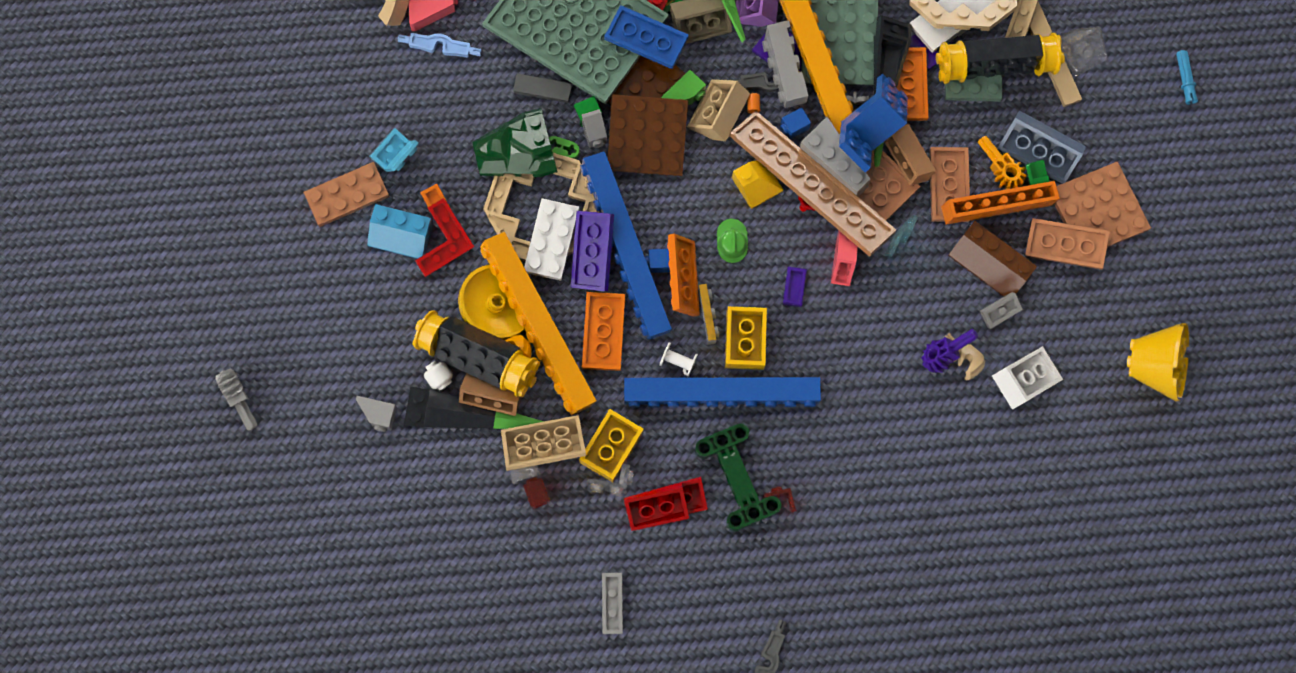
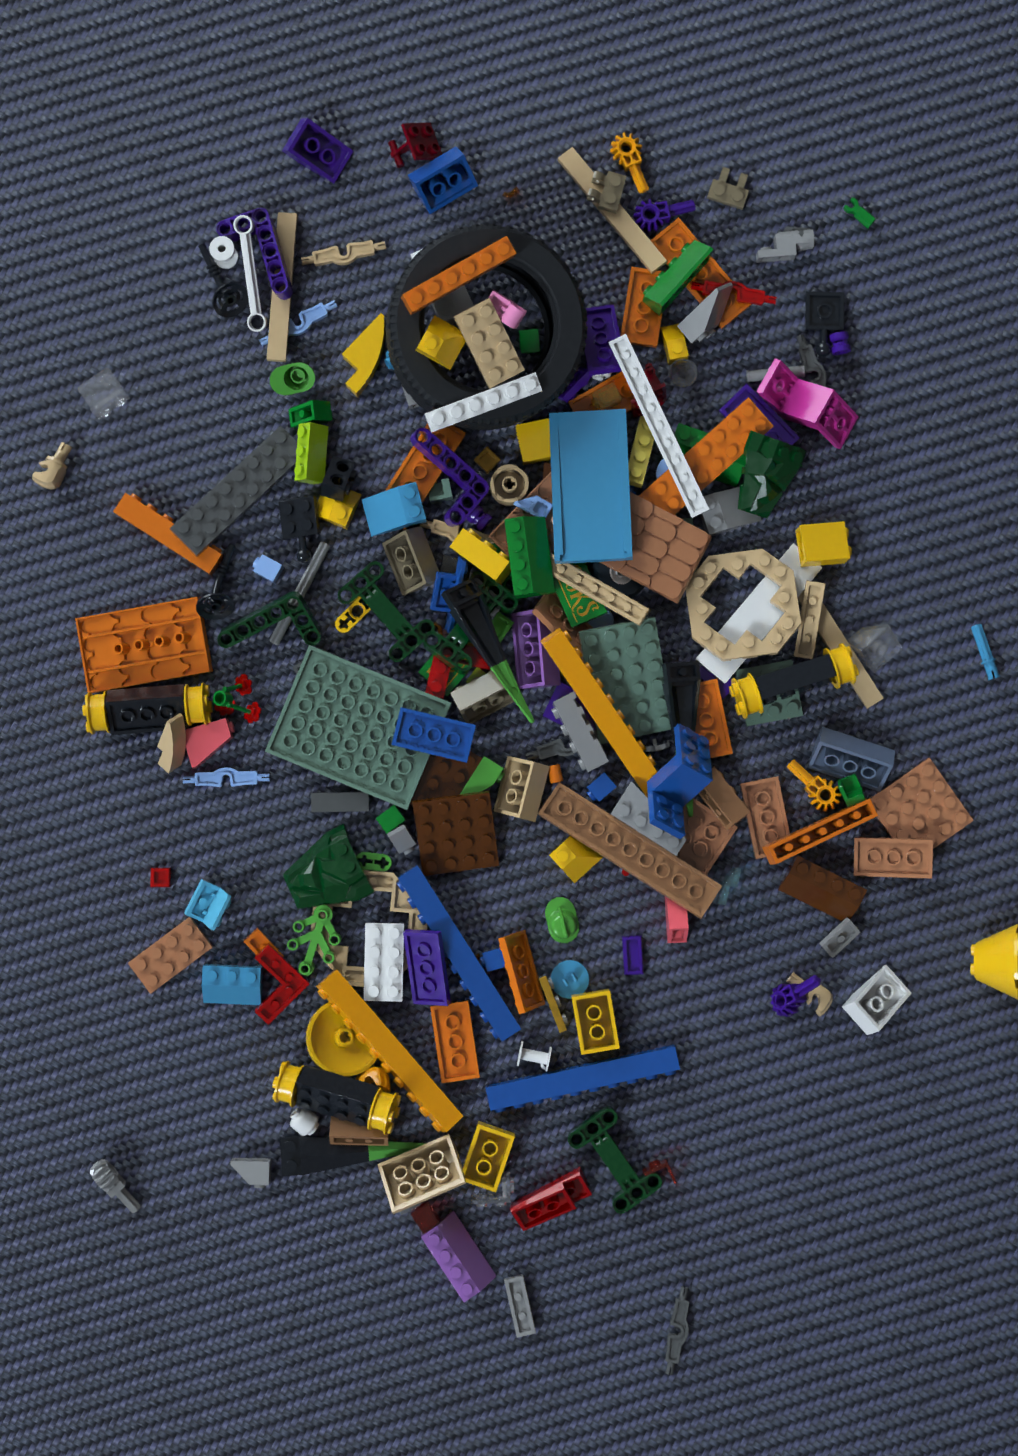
camera: 10 degrees left, 10 degrees up
(355, 121) = (160, 877): none -> red tile
(490, 203) = (316, 937): none -> bright green plant
(561, 539) = (458, 1256): none -> medium lavender slope
(728, 293) = (570, 978): none -> dark azure piece

